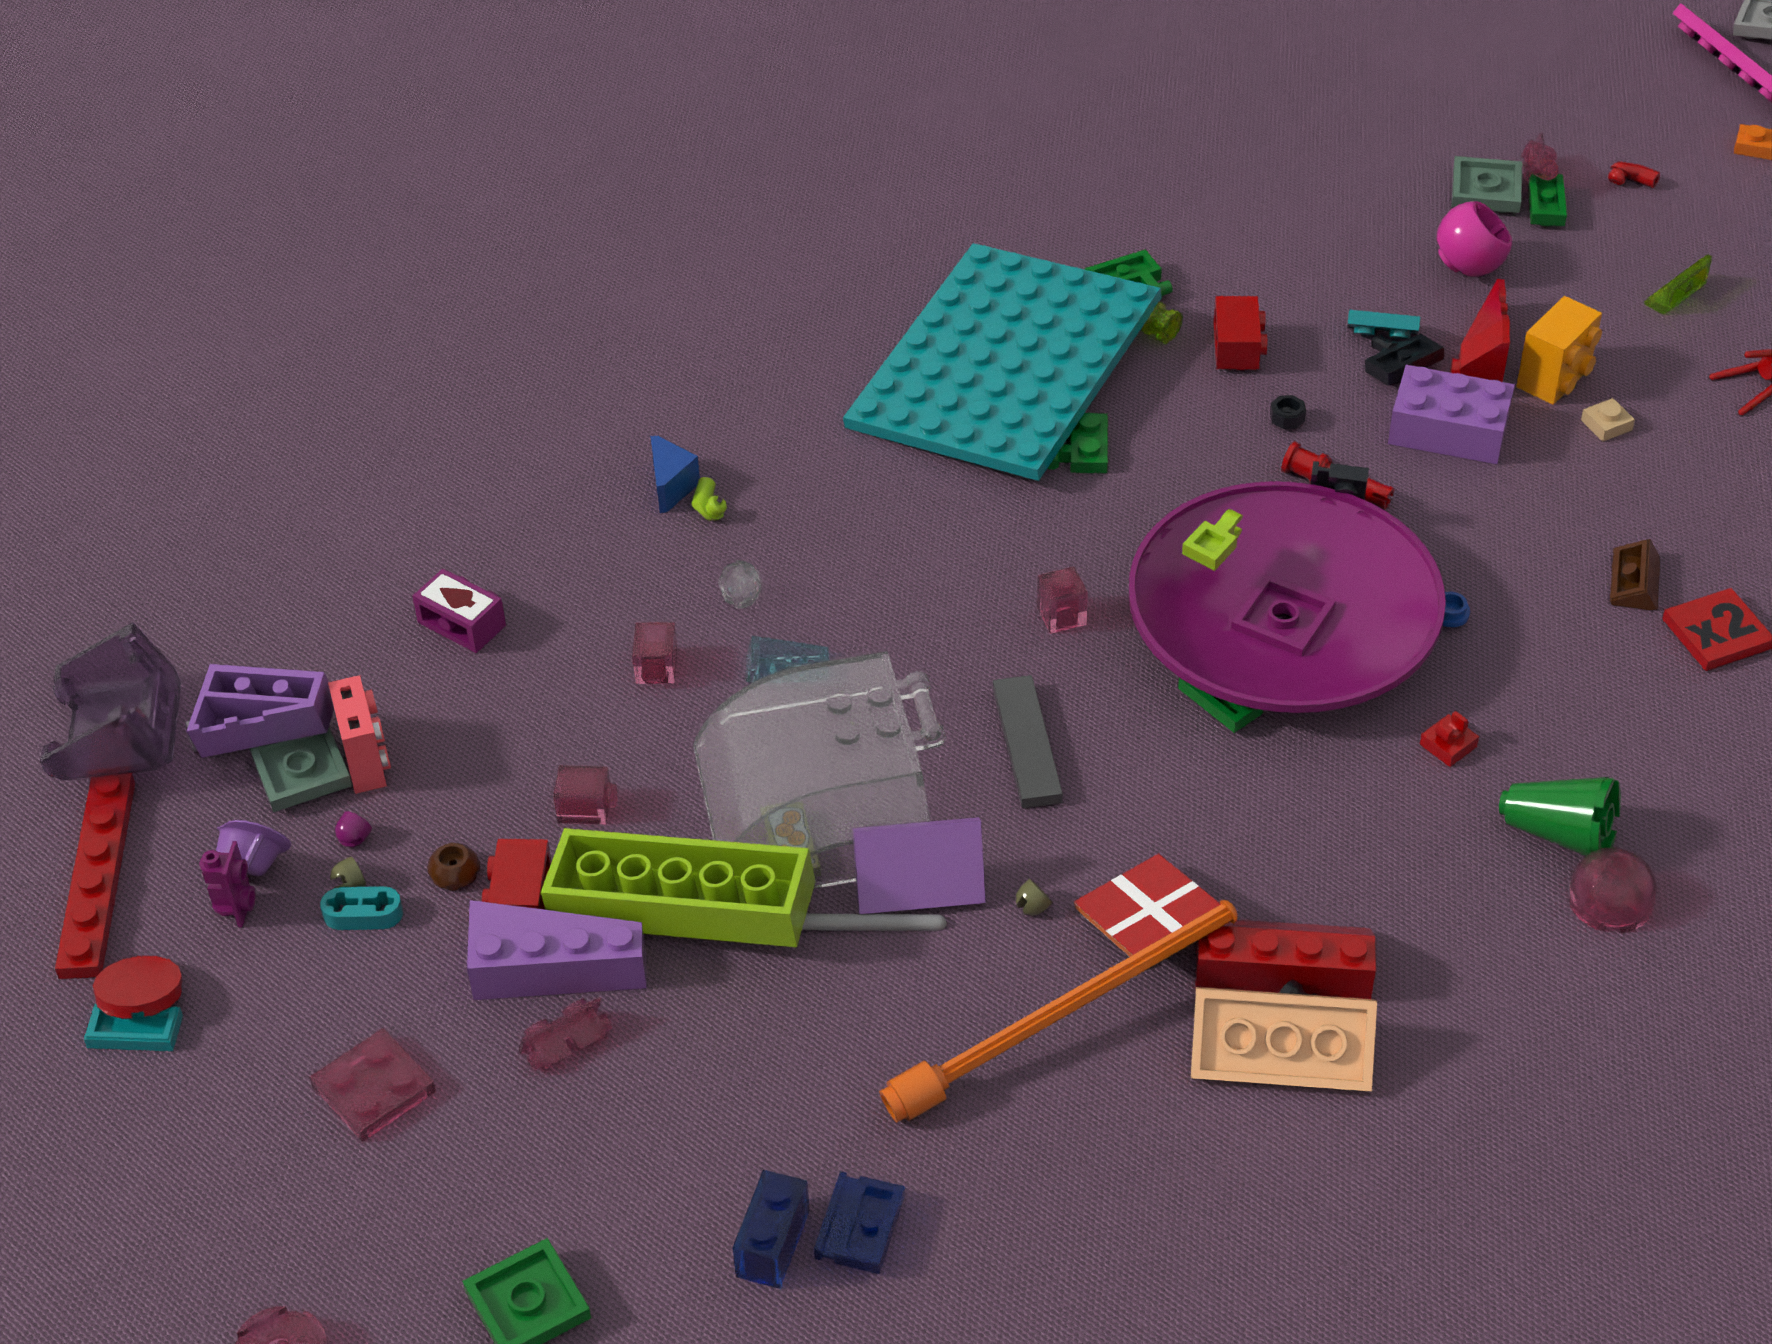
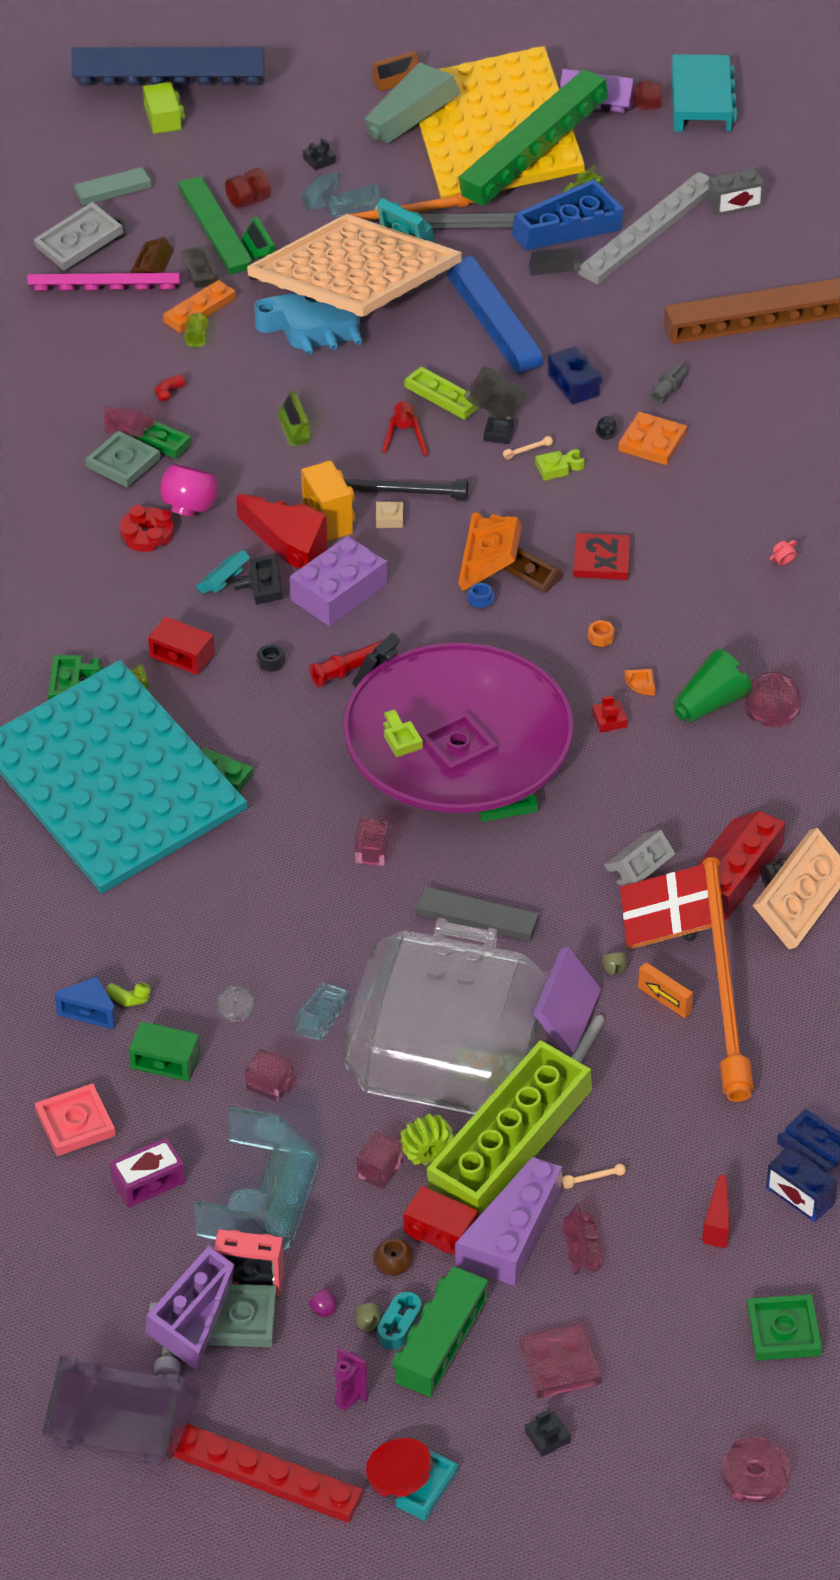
camera: 65 degrees left, 0 degrees up
(255, 1113) = (547, 1433): none -> black tile
(256, 844) = (318, 1365): medium lavender piece -> none
(347, 945) = (441, 1331): none -> green brick
(493, 720) = (284, 1188): none -> clear light blue windscreen
(505, 528) = (74, 1119): none -> coral plate
(625, 812) = (426, 1138): none -> lime gear
(639, 556) = (164, 1051): none -> green brick
(659, 990) = (569, 1181): none -> light nougat hinge
(678, 1155) = (716, 1223): none -> red slope
(1017, 963) = (665, 990): none -> orange tile
(1219, 855) = (641, 857): none -> light grey hinge
(1387, 240) = (139, 517): none -> red plate
(1538, 748) = (640, 681): none -> orange tile
(1545, 545) = (480, 595): none -> blue plate
(1580, 676) = (601, 633): none -> orange tile
(1622, 517) = (488, 548): none -> orange wing
(1701, 458) = (456, 489): none -> black piece
(1746, 154) = (196, 328): none -> clear neon green bush

